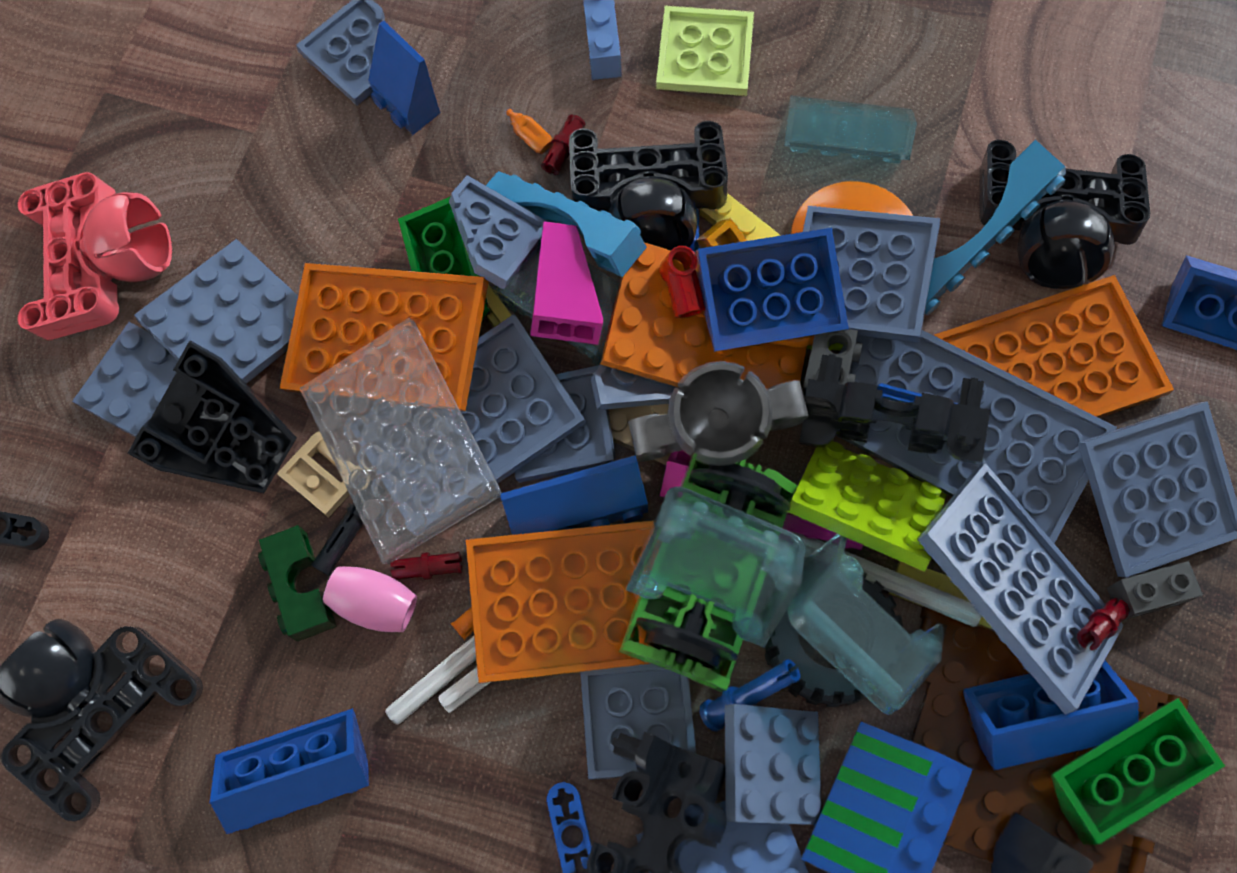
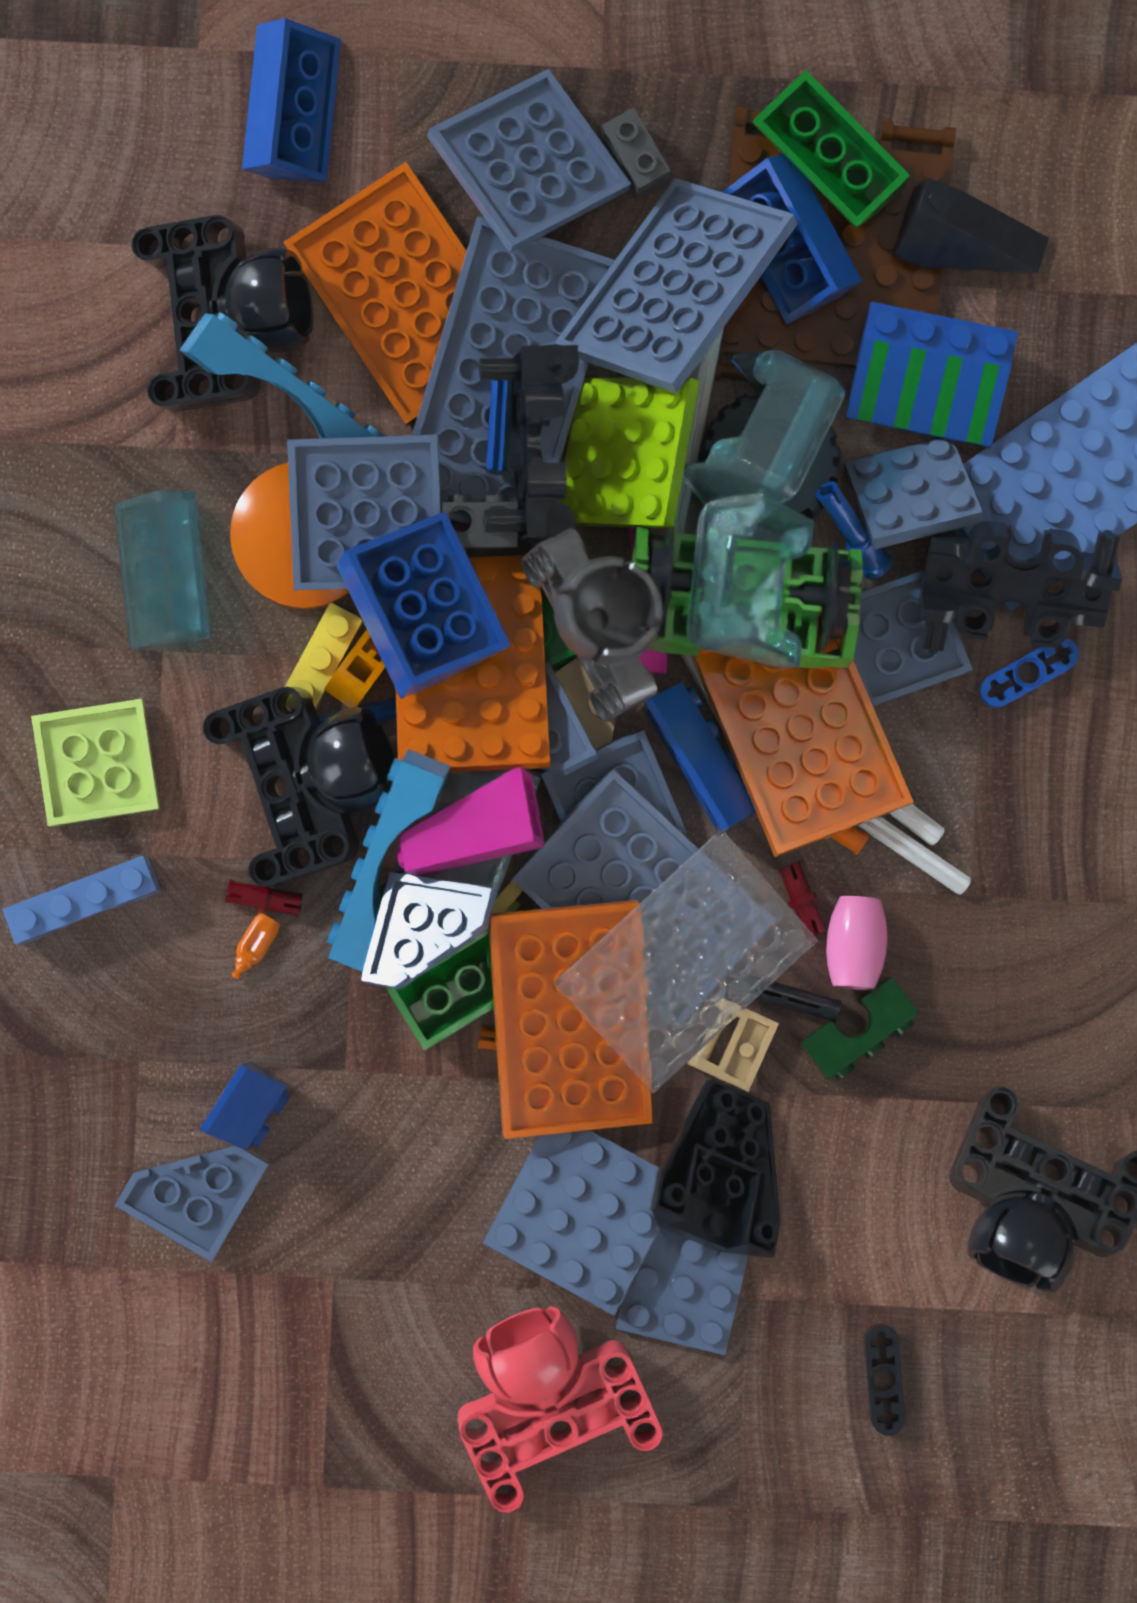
camera: 115 degrees left, 15 degrees up
(289, 771) = (1044, 969): blue slope -> none
(683, 285) = (444, 697): red piece -> none
(1103, 624) = (690, 199): dark red pin -> none

